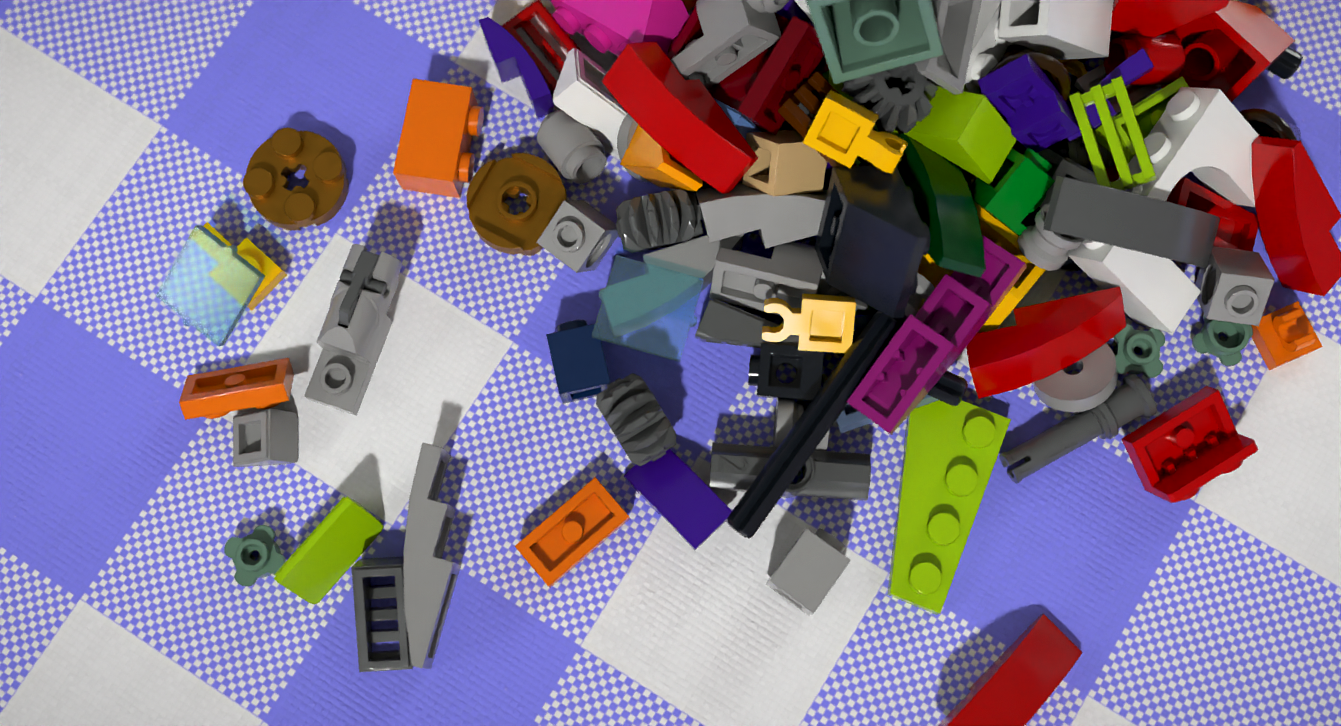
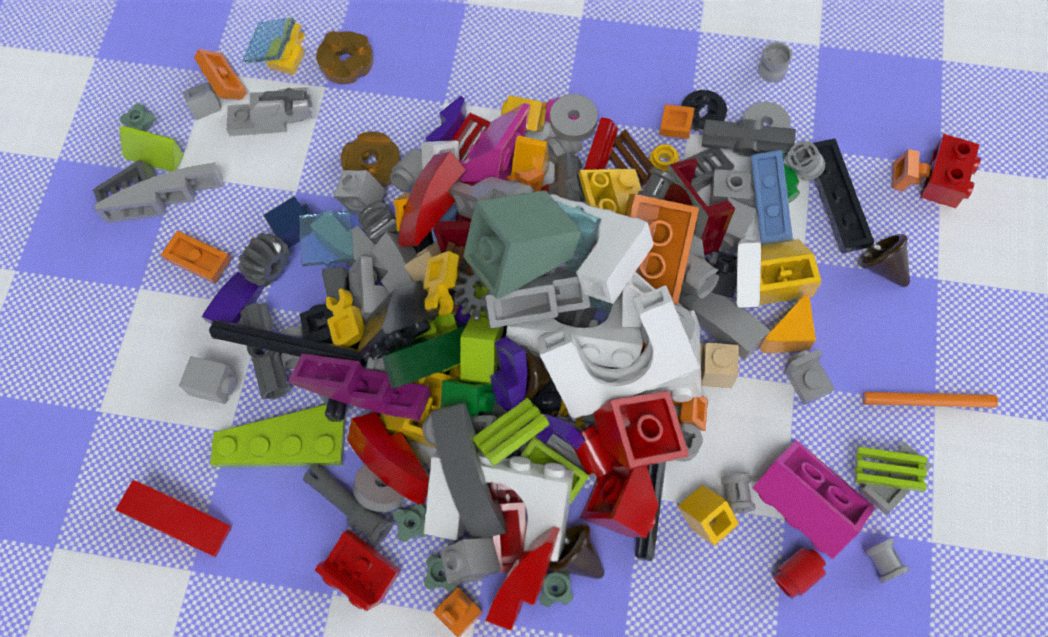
camera: 70 degrees right, 10 degrees down
(438, 138) = (390, 106): orange brick -> none

